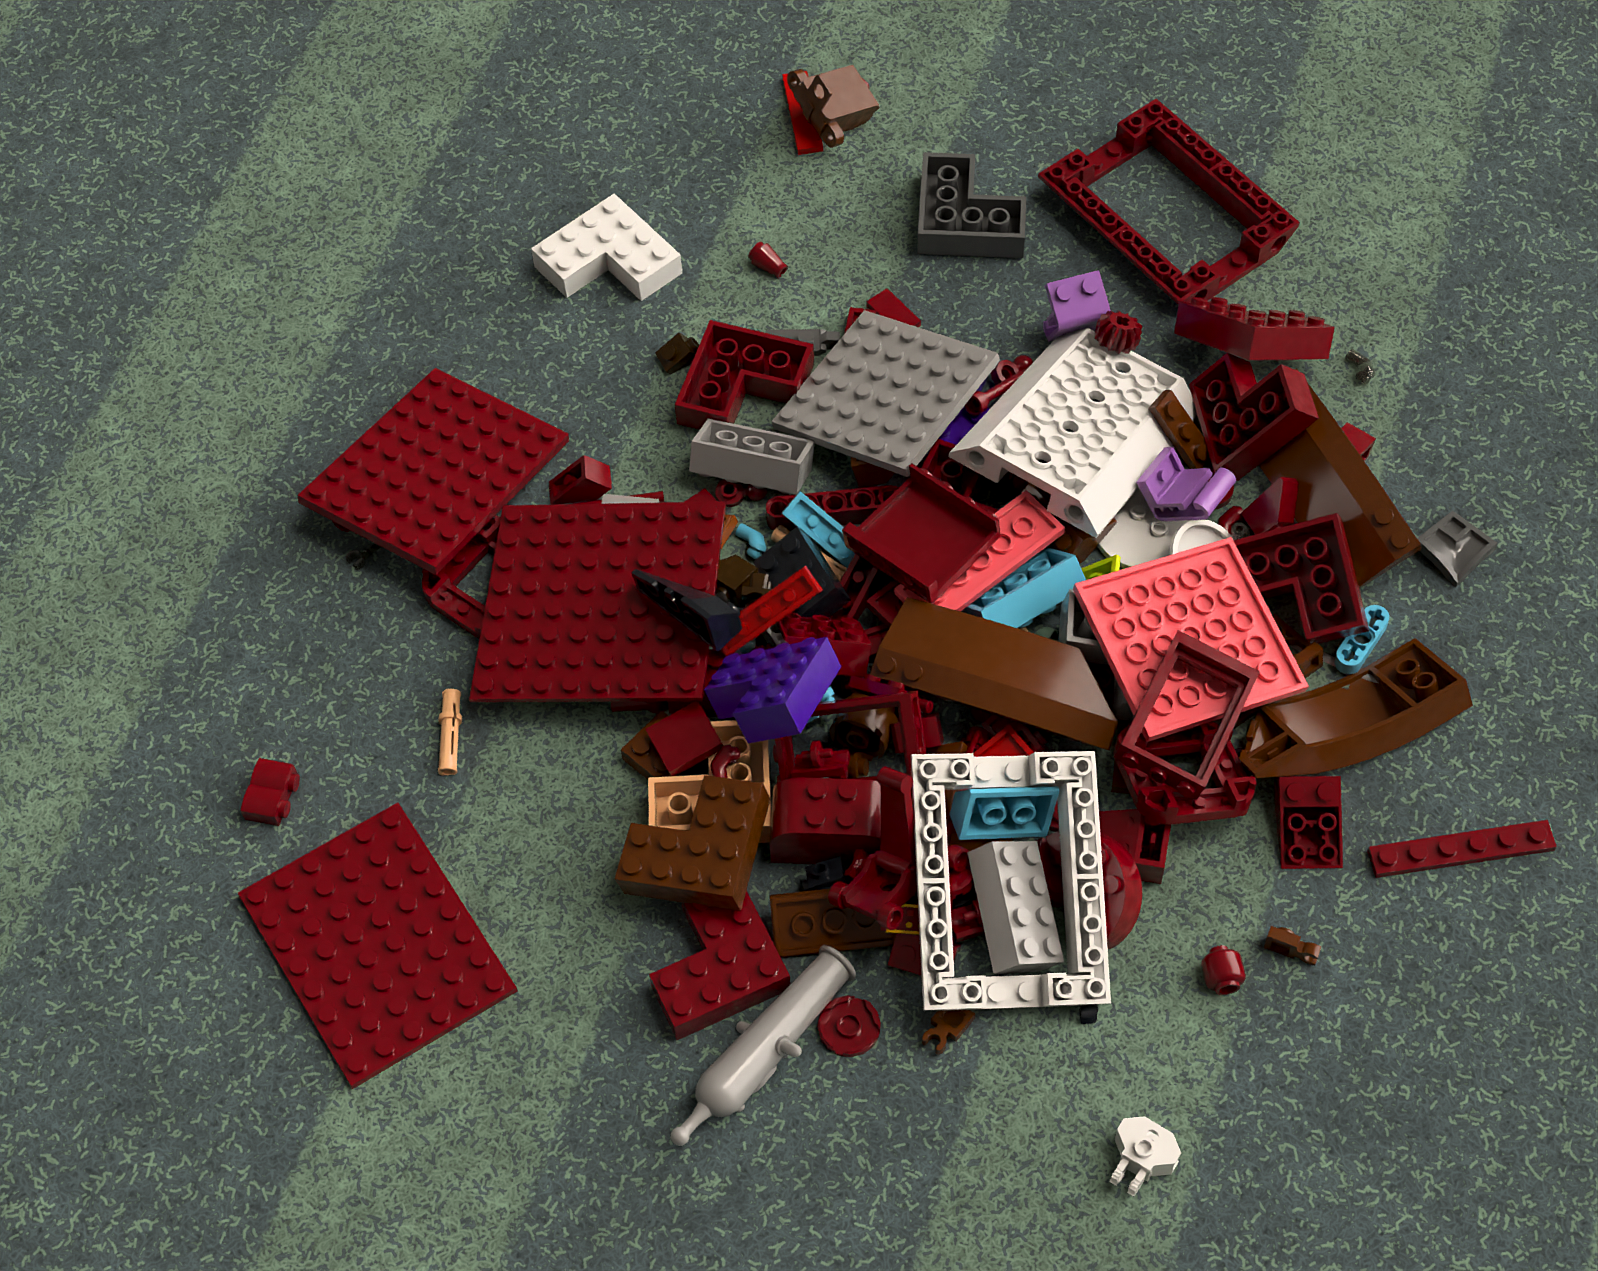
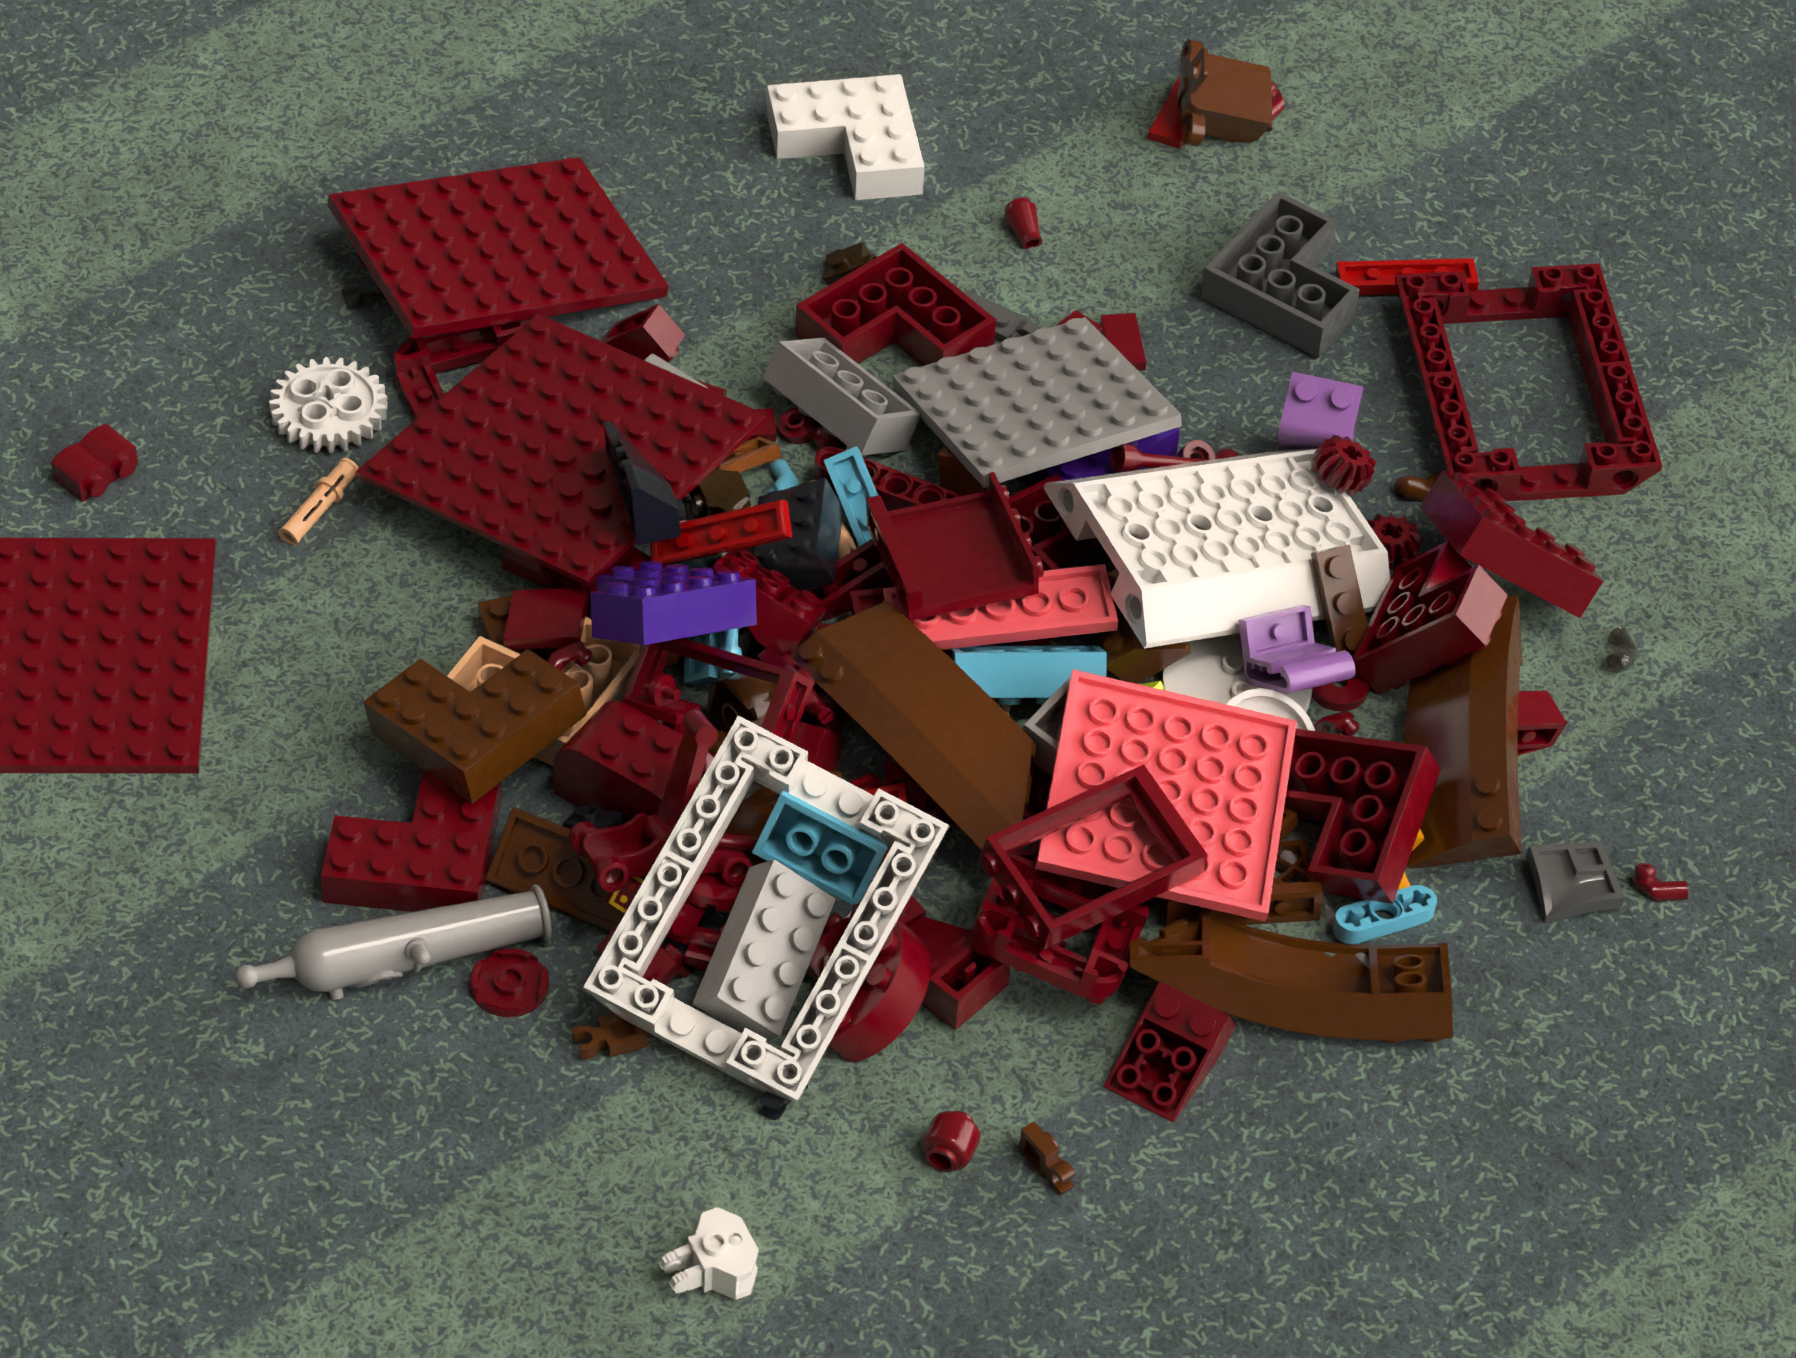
camera: 25 degrees right, 10 degrees down
(402, 653) = (328, 405): none -> white gear
(1025, 175) = (1379, 275): none -> red plate
(1155, 318) = (1415, 487): none -> reddish brown arm
(1173, 361) = (1397, 537): none -> dark red gear
(1273, 507) = (1391, 720): dark red slope -> none
(1461, 848) = (1325, 1173): dark red plate -> none
(1496, 522) = (1655, 888): none -> dark red arm

